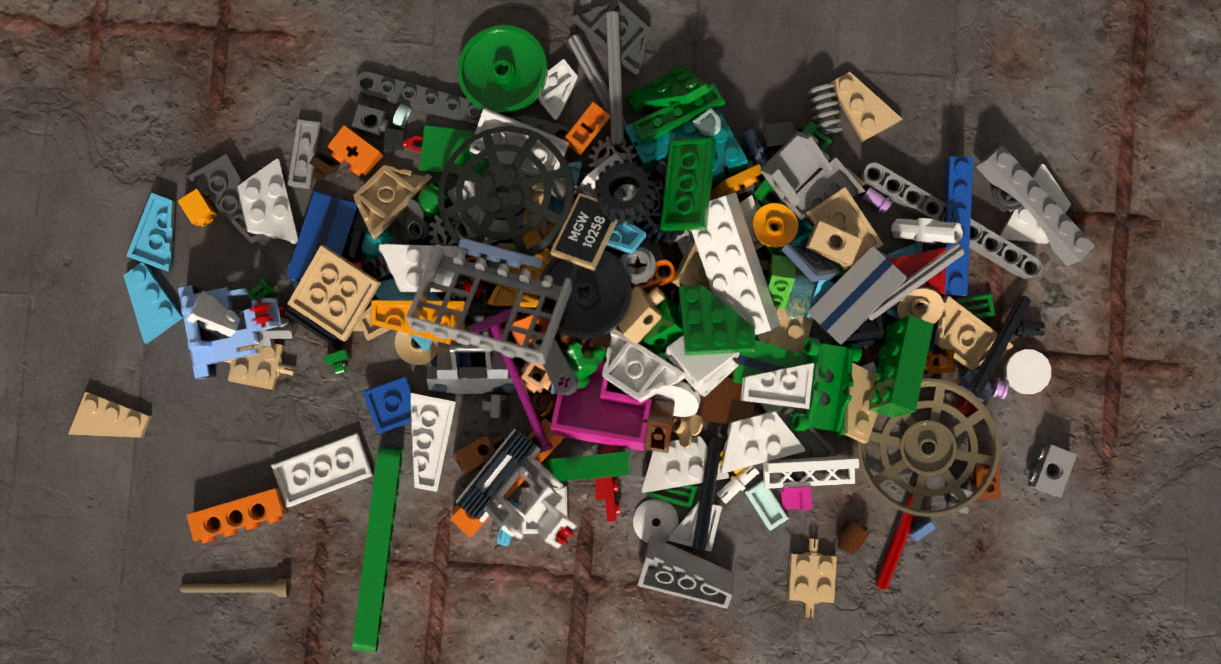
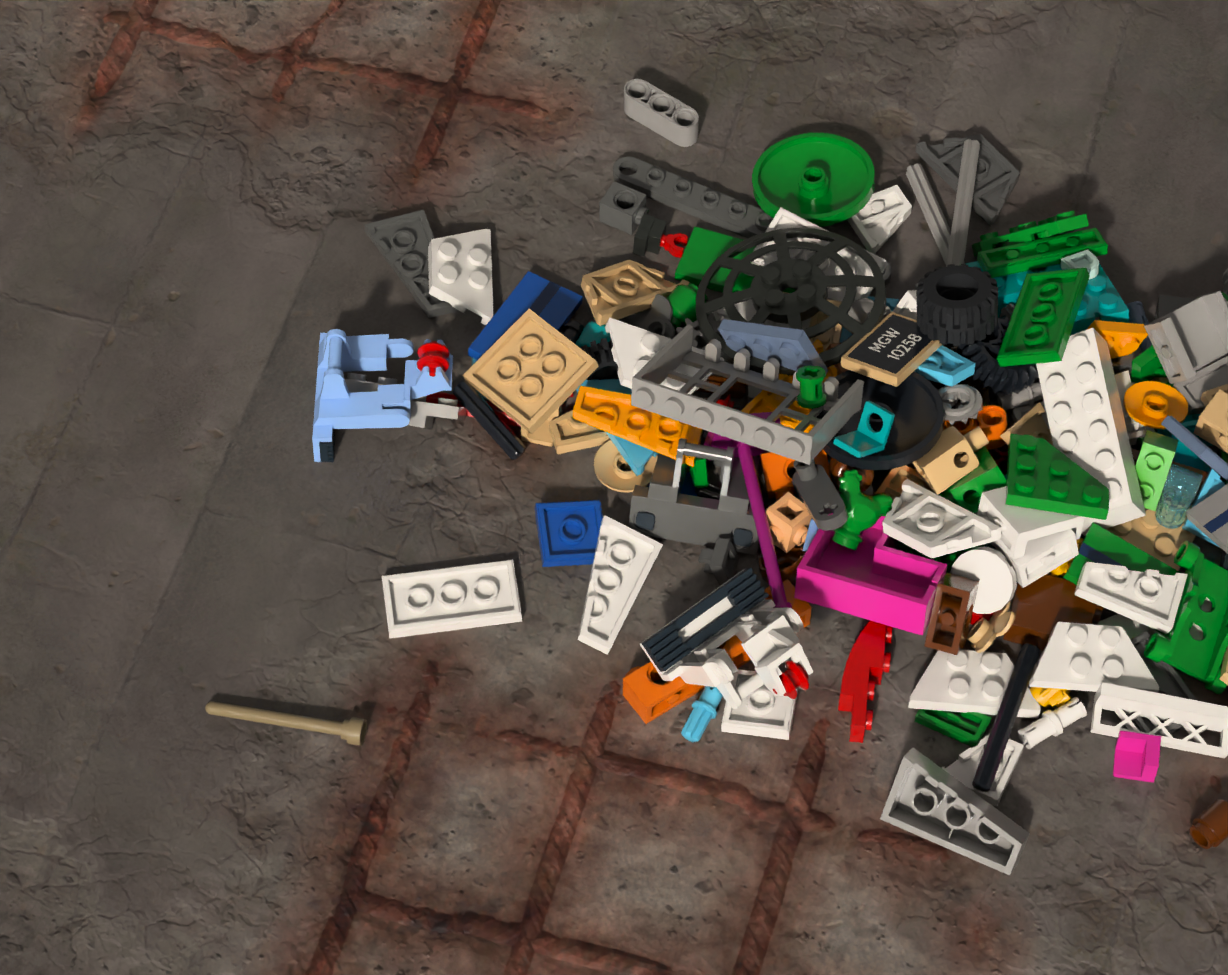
camera: 15 degrees right, 30 degrees down
(107, 418) = (169, 479): tan wing -> none
(150, 303) = (272, 360): medium azure wing -> none
(154, 234) = (301, 282): medium azure wing -> none
(197, 208) = (368, 261): light orange brick -> none
(201, 521) = (304, 614): orange brick -> none
(214, 314) = (363, 341): white wing -> none
(260, 369) = (395, 454): tan plate -> none
(304, 148) = (525, 233): light grey tile -> none
(324, 166) = (547, 246): dark brown tile -> none
(337, 360) = (509, 465): green tile -> none
(345, 142) = (594, 236): orange brick -> none
(373, 18) = (661, 112): none -> light grey beam
(377, 549) = (505, 710): green beam -> none
(401, 116) = (667, 208): light aqua tile -> none
(469, 458) = (669, 600): reddish brown torso -> none
(536, 286) = (811, 387): none -> green bush
(578, 324) = (866, 440): none -> teal bracket
(586, 128) = (913, 259): orange brick -> none
(590, 466) = (852, 647): green tile -> none
(655, 509) = (920, 736): white dish -> none
(766, 505) = (1090, 763): light aqua tile -> none
(811, 578) = (1145, 871): tan plate -> none

